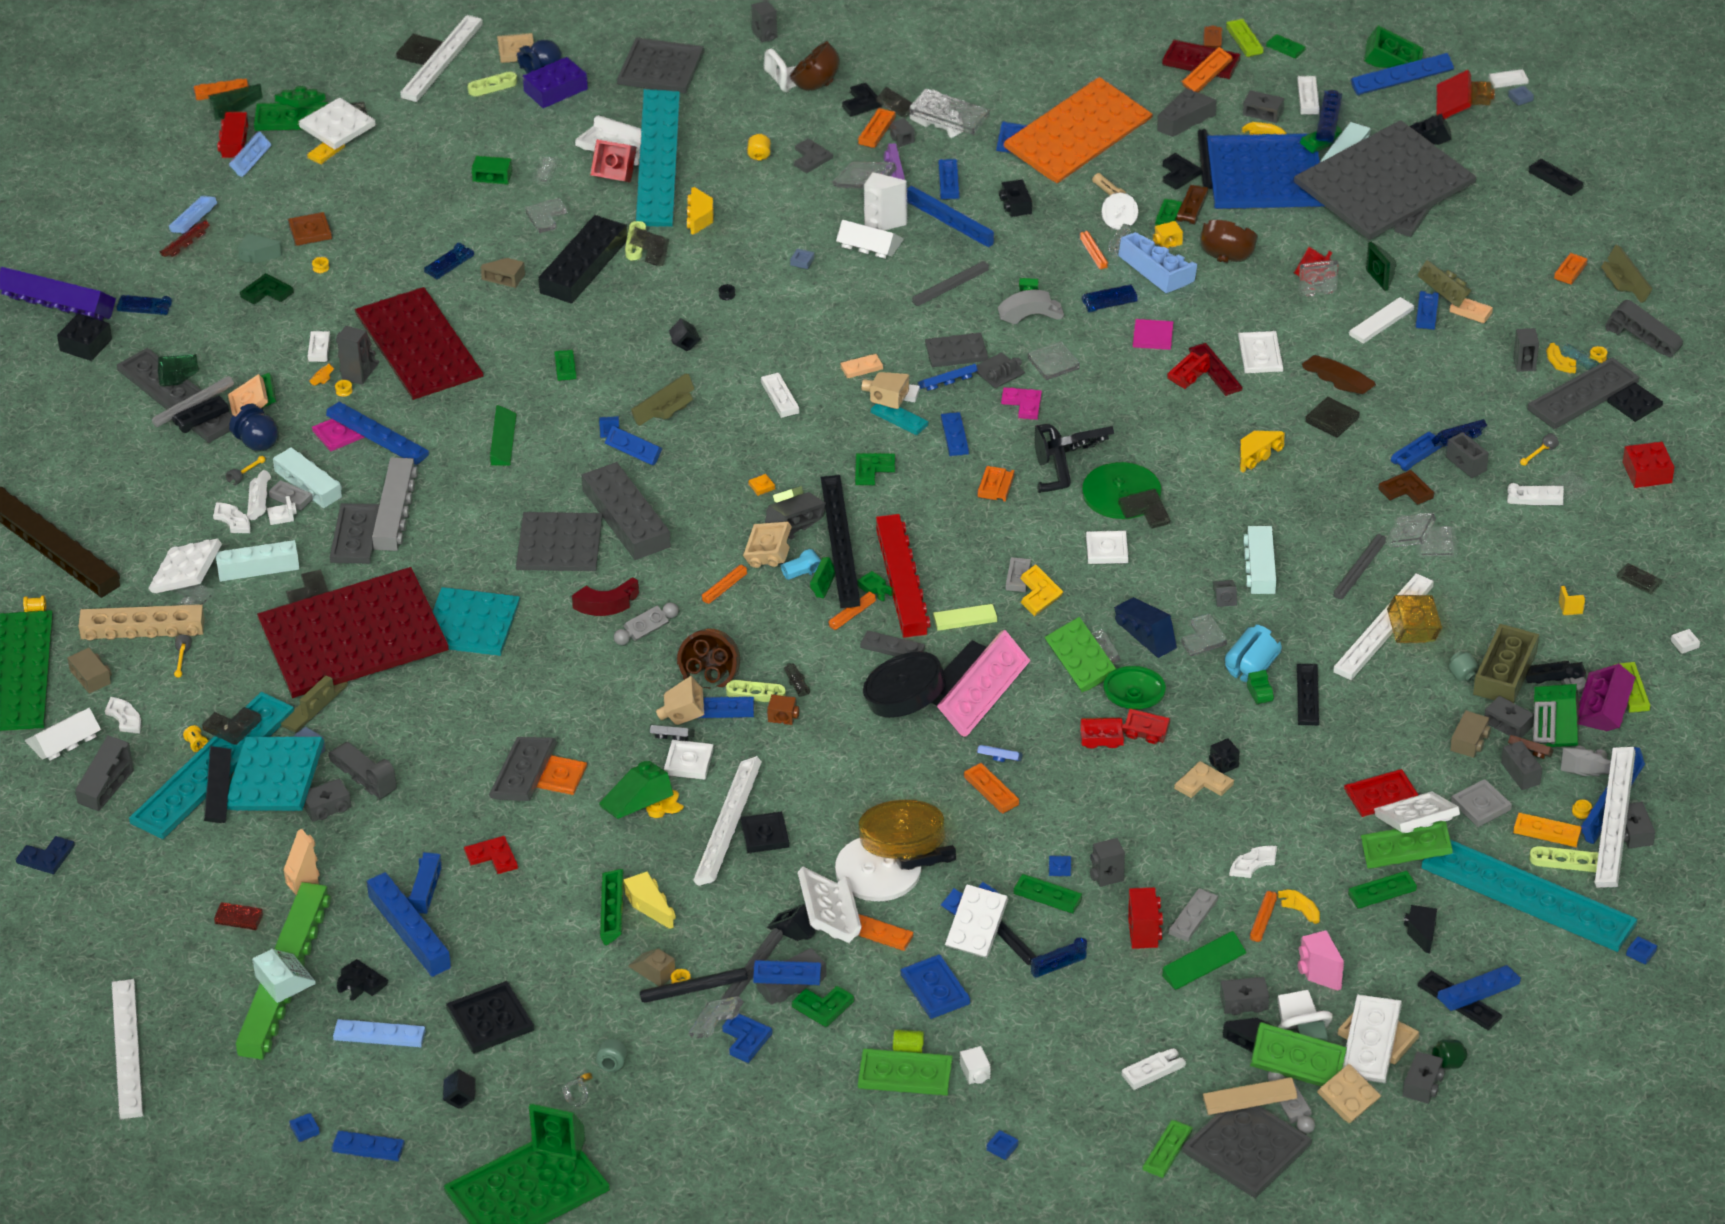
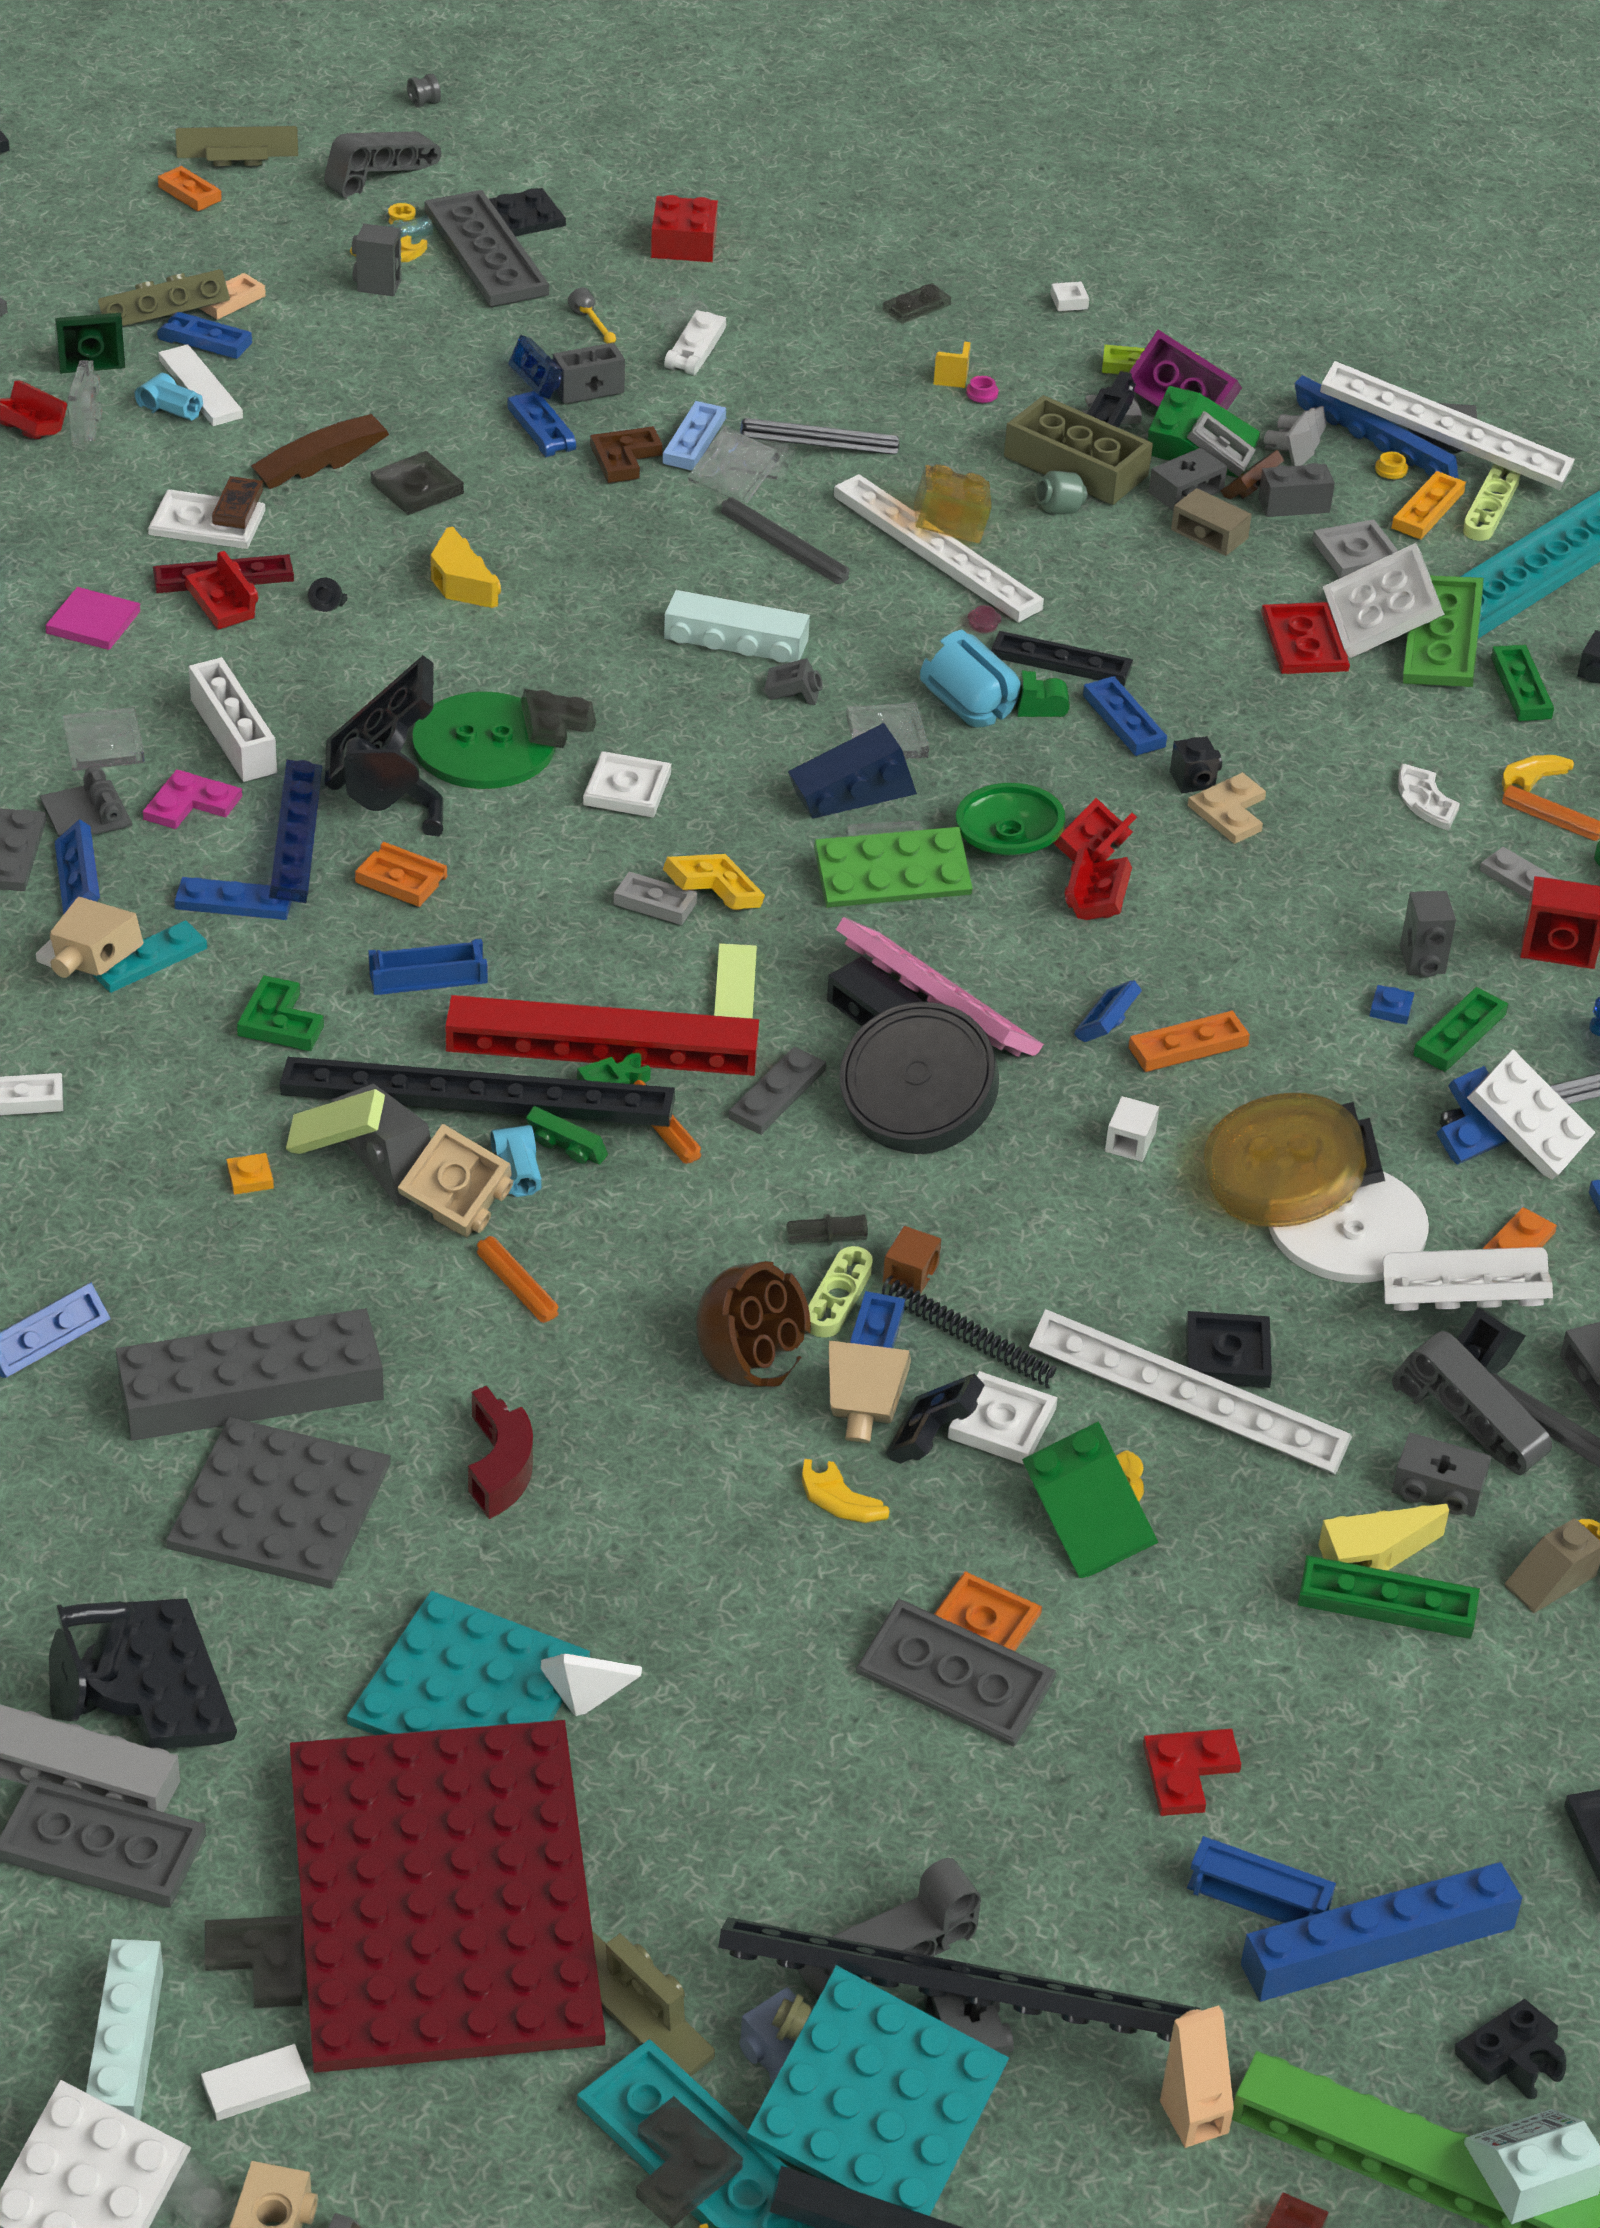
camera: 80 degrees left, 0 degrees up
(249, 604) = (255, 2082): none -> white tile
(300, 732) = (791, 2018): none -> olive plate
(332, 783) = (938, 1976): none -> black plate
(445, 526) = (142, 1666): none -> black plate
(477, 649) = (587, 1681): none -> white slope
(622, 713) = (834, 1496): none -> yellow piece
(646, 623) = (592, 1410): light grey plate -> none
(701, 917) = (1441, 1474): none -> dark grey brick
(741, 738) = (941, 1312): none -> black piece
(760, 903) = (1475, 1400): none -> dark grey beam
(910, 774) = (1132, 1129): none -> white brick
(928, 507) = (427, 967): none -> blue container
(999, 440) = (296, 831): none -> clear blue plate
(1082, 395) = (233, 719): none -> white brick
(1213, 408) = (326, 595): none -> black plate
(1262, 725) = (1124, 716): none -> blue plate
(1272, 355) = (237, 502): none -> reddish brown tile
(1326, 657) = (984, 619): none -> clear pink plate
(1357, 309) = (165, 394): none -> medium azure piece
(1443, 511) = (694, 435): none -> light blue plate
(1460, 558) = (819, 436): none -> axle
(1559, 620) = (982, 389): none -> dark pink plate

